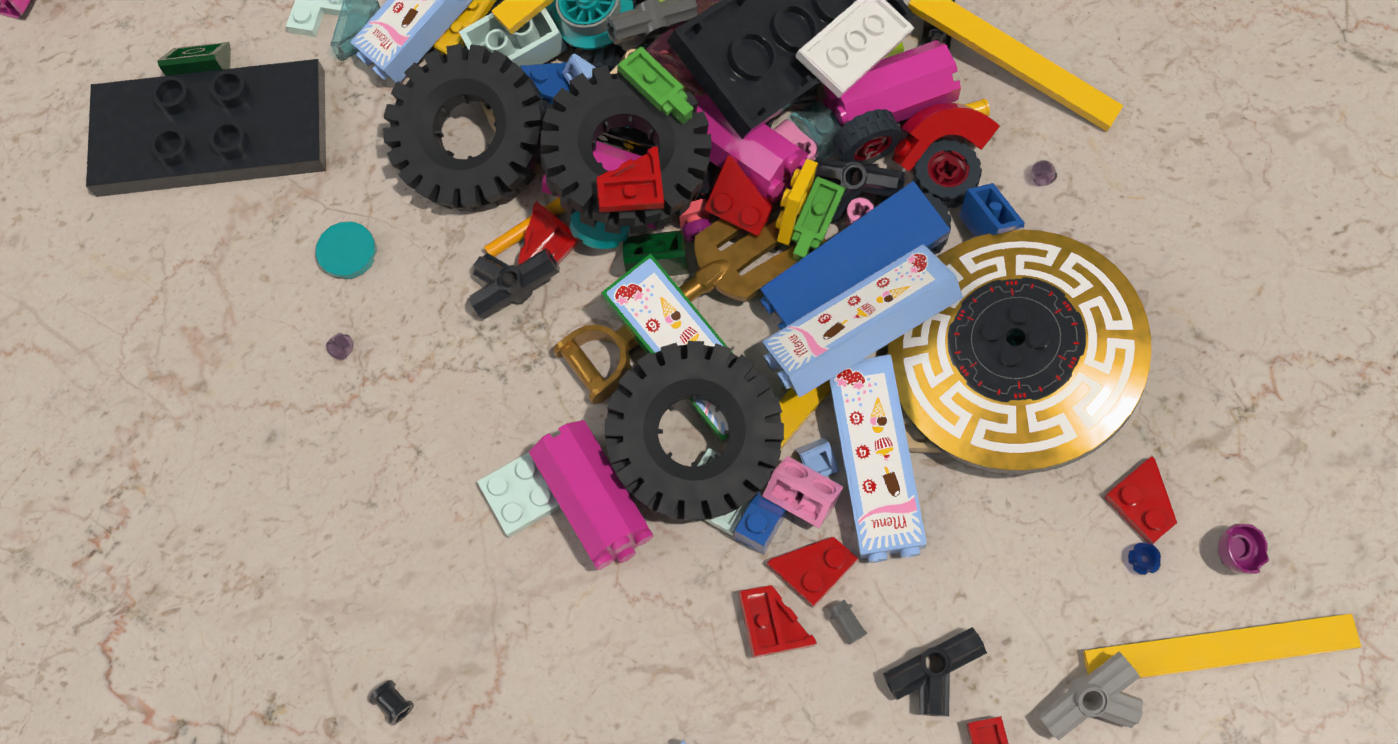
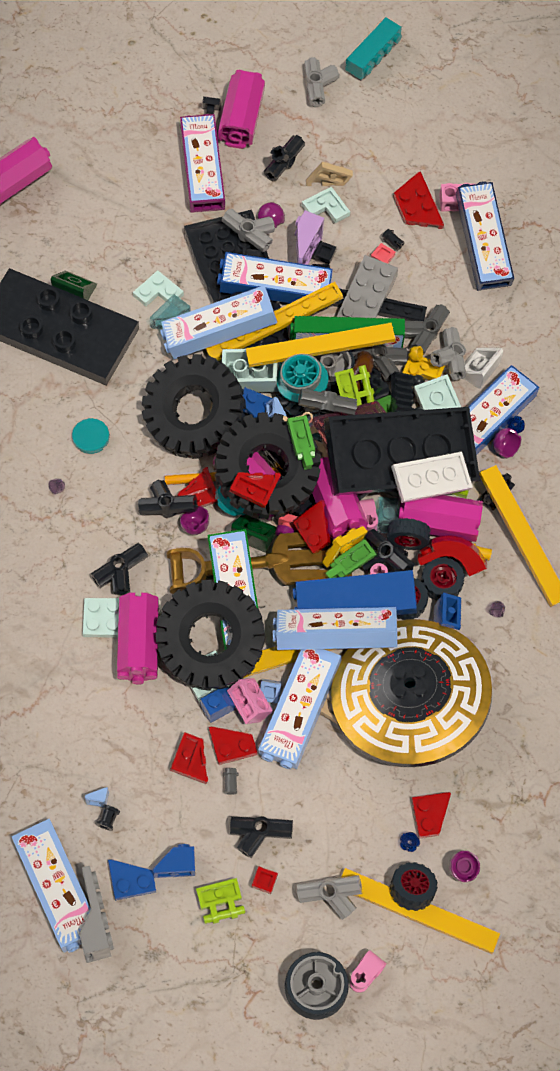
camera: 20 degrees right, 5 degrees down
(508, 421) = (120, 575): none -> black piece
(567, 286) = (195, 522): none -> magenta hair
(1197, 620) = (413, 886): none -> black wheel

